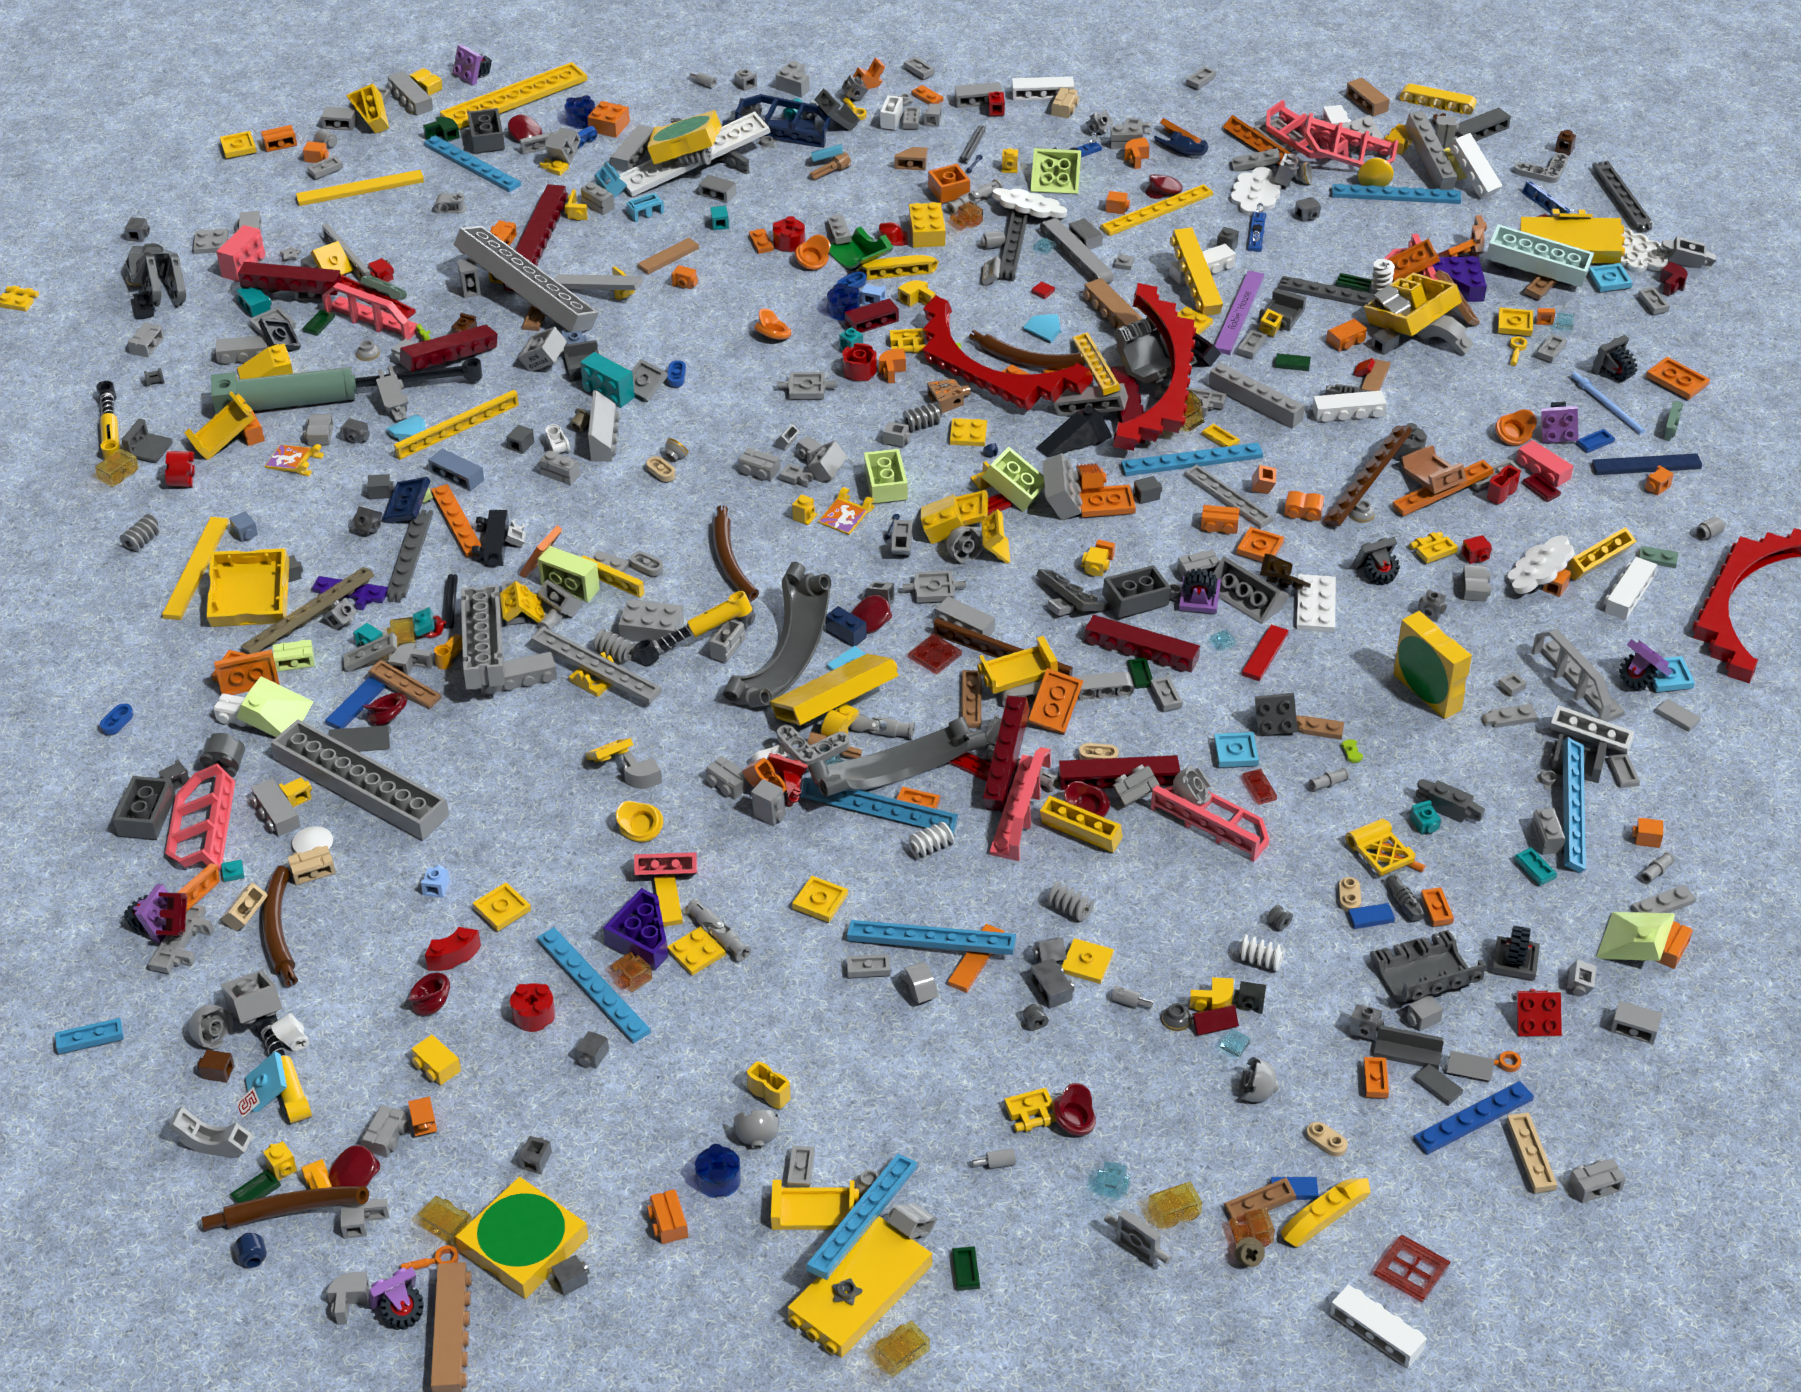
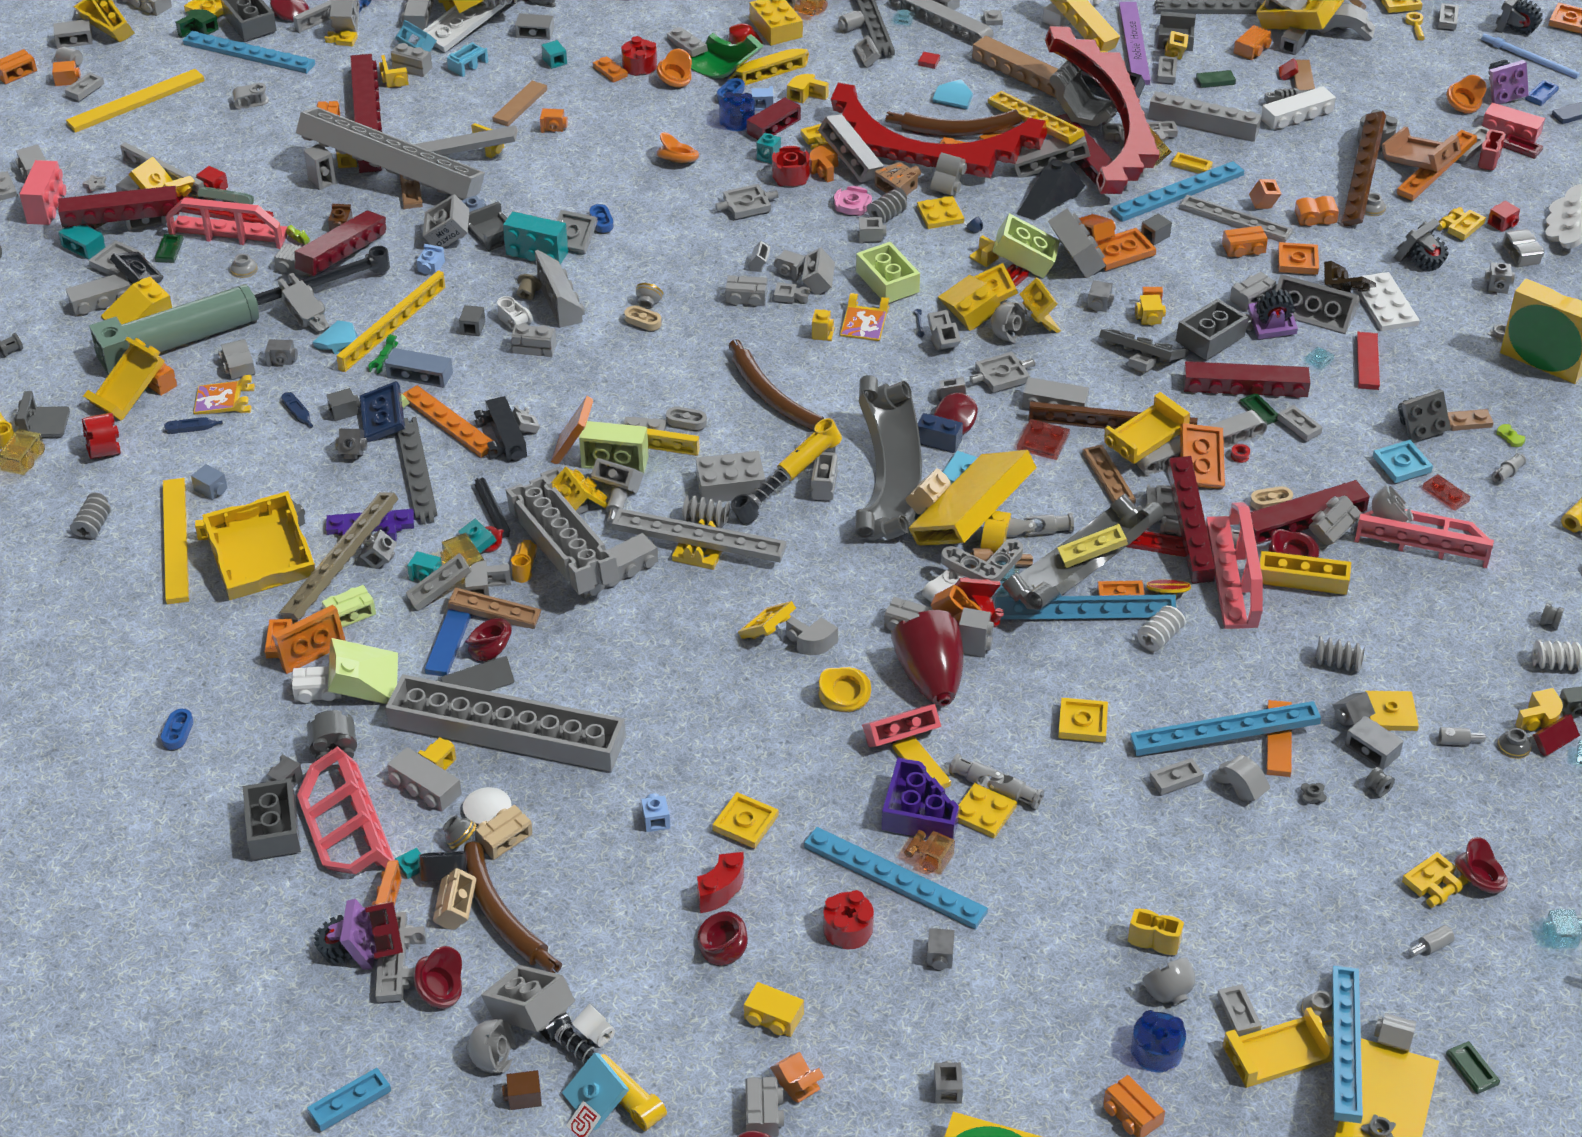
camera: 20 degrees left, 0 degrees up
(200, 964) = (439, 975): none -> dark red piece
(244, 875) = (439, 864): none -> black beam
(256, 476) = (190, 425): none -> dark blue piece
(276, 854) = (458, 831): none -> dark grey piece
(345, 482) = (296, 408): none -> dark blue piece
(349, 272) = (183, 185): none -> yellow plate
(446, 444) = (379, 362): none -> green piece
(517, 379) = (430, 259): none -> light blue brick
(720, 811) = (931, 654): none -> dark red cylinder
(803, 673) = (928, 491): none -> tan brick
(891, 407) = (844, 203): none -> bright pink plate
(913, 755) = (1092, 545): none -> light yellow plate
(916, 356) = (850, 147): none -> light grey brick
(959, 806) = (1168, 586): none -> piece
(975, 1015) = (1313, 793): none -> dark grey plate
(989, 399) = (948, 174): none -> light grey brick
(1059, 539) = (1100, 296): none -> flat silver brick
(1097, 712) = (1240, 458): none -> red bush

